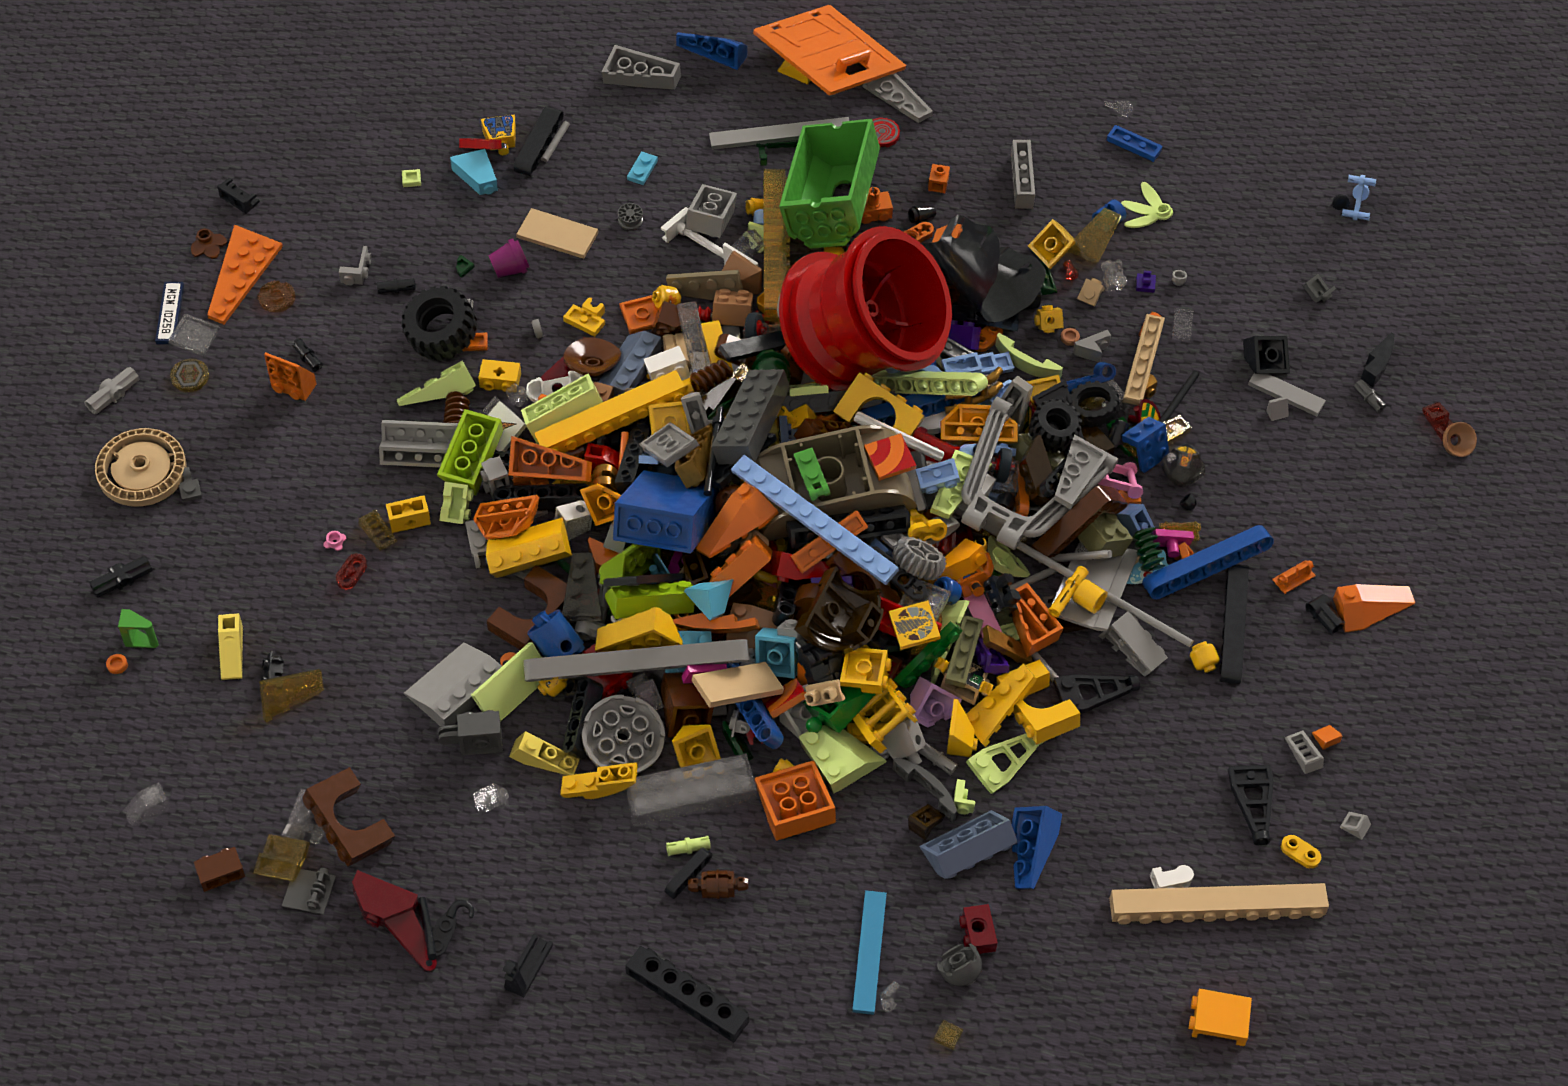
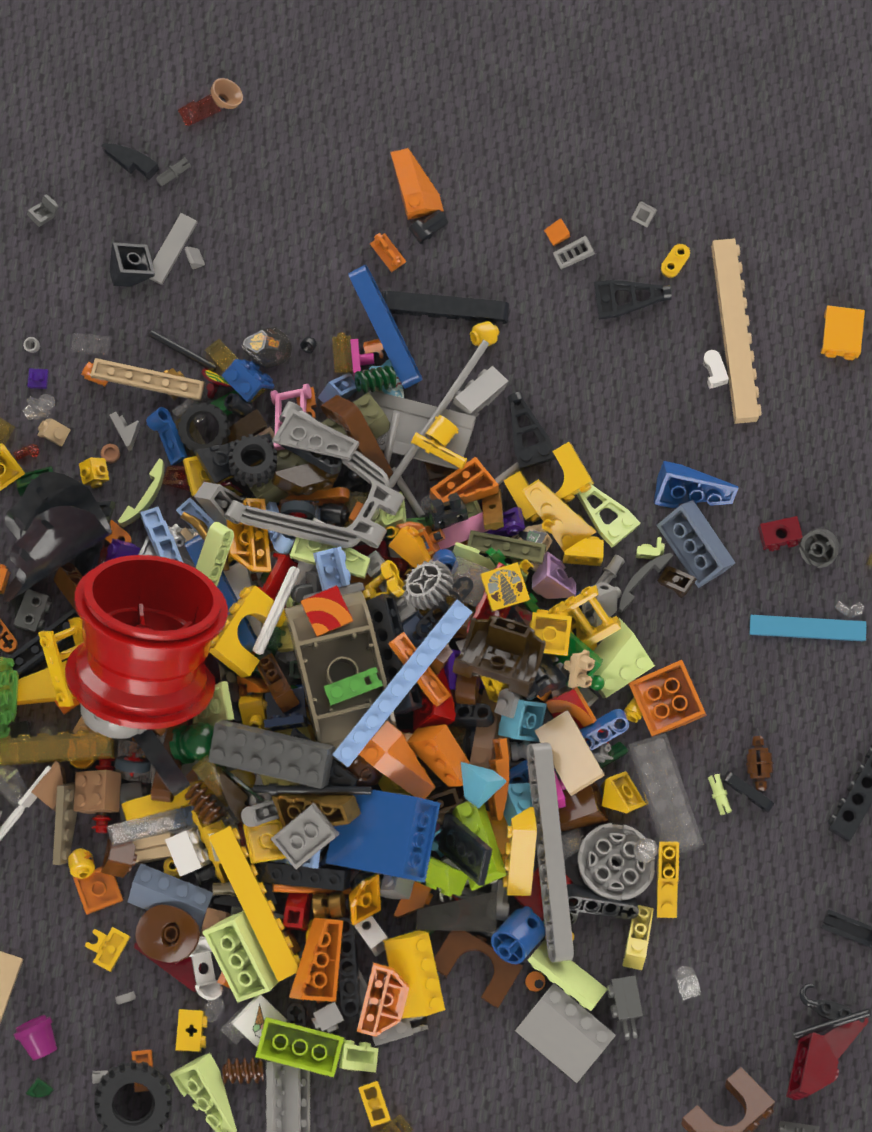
camera: 90 degrees left, 20 degrees up
(632, 755) = (645, 850): none -> clear piece

